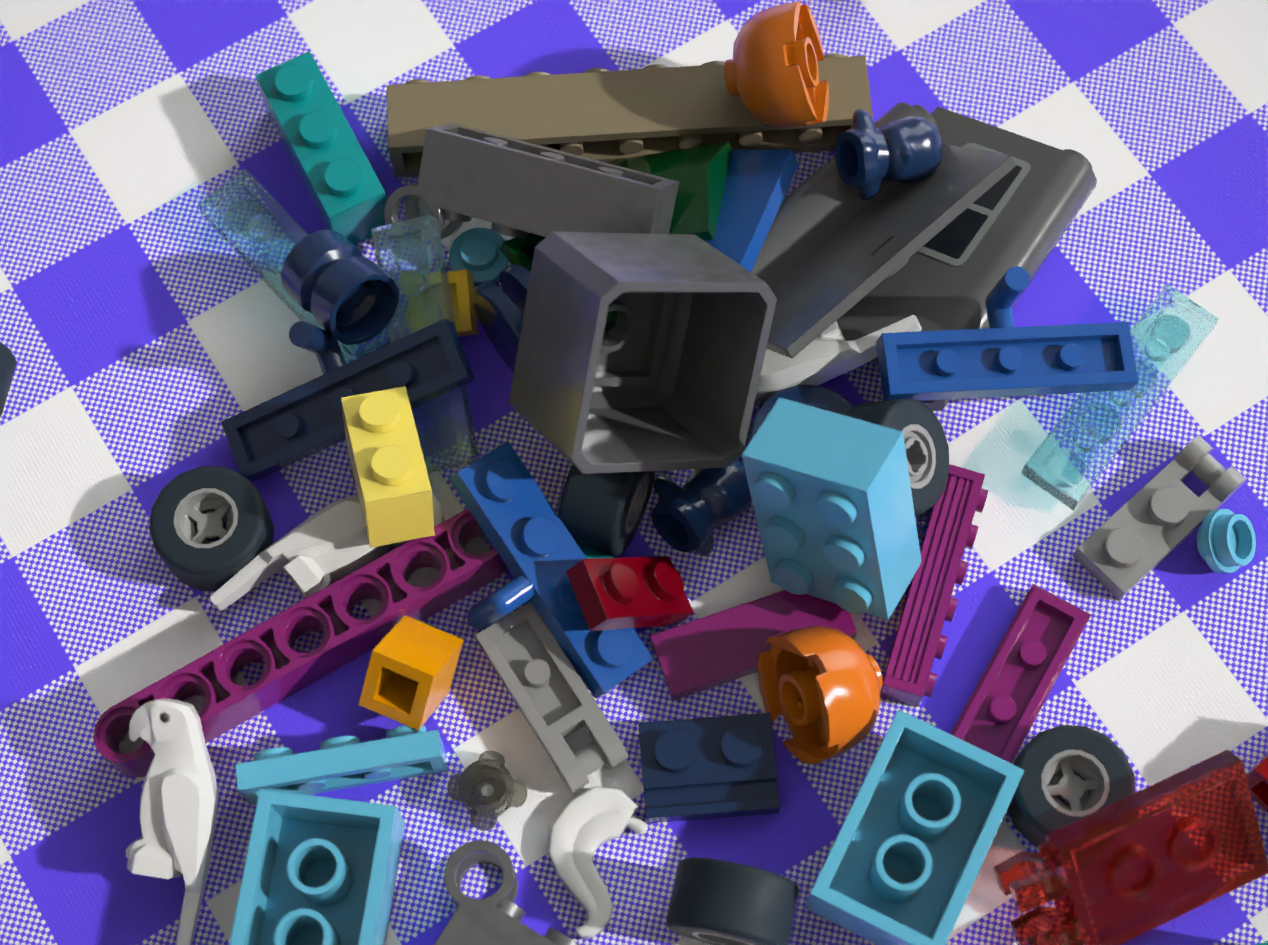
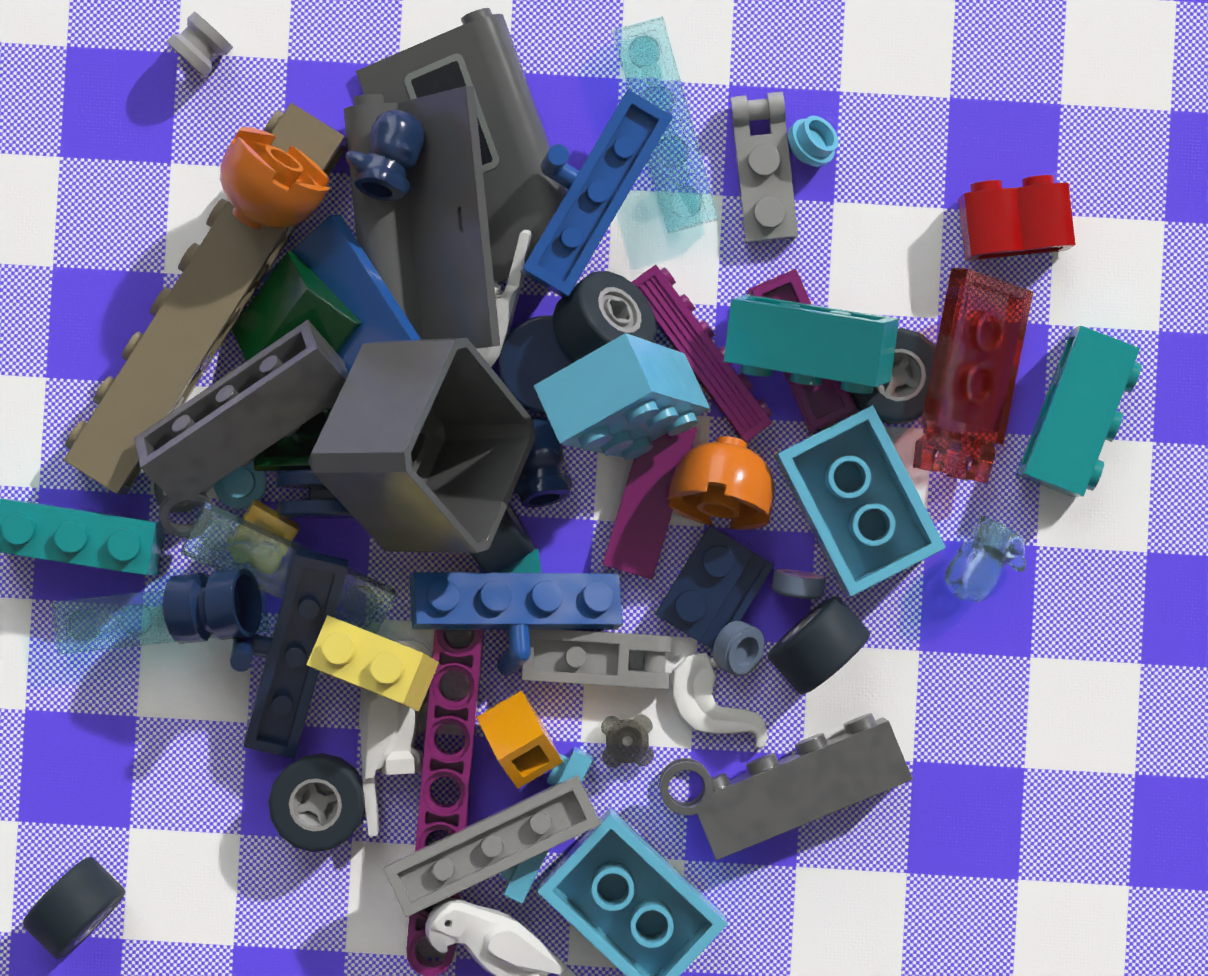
camera: 60 degrees left, 20 degrees up
(280, 709) = (492, 845): none -> light grey plate
(629, 592) = (569, 561): dark red plate -> none
(666, 831) = (738, 648): none -> sand blue tile
(780, 845) = (798, 583): none -> sand blue tile
(1036, 667) = (811, 342): none -> teal brick

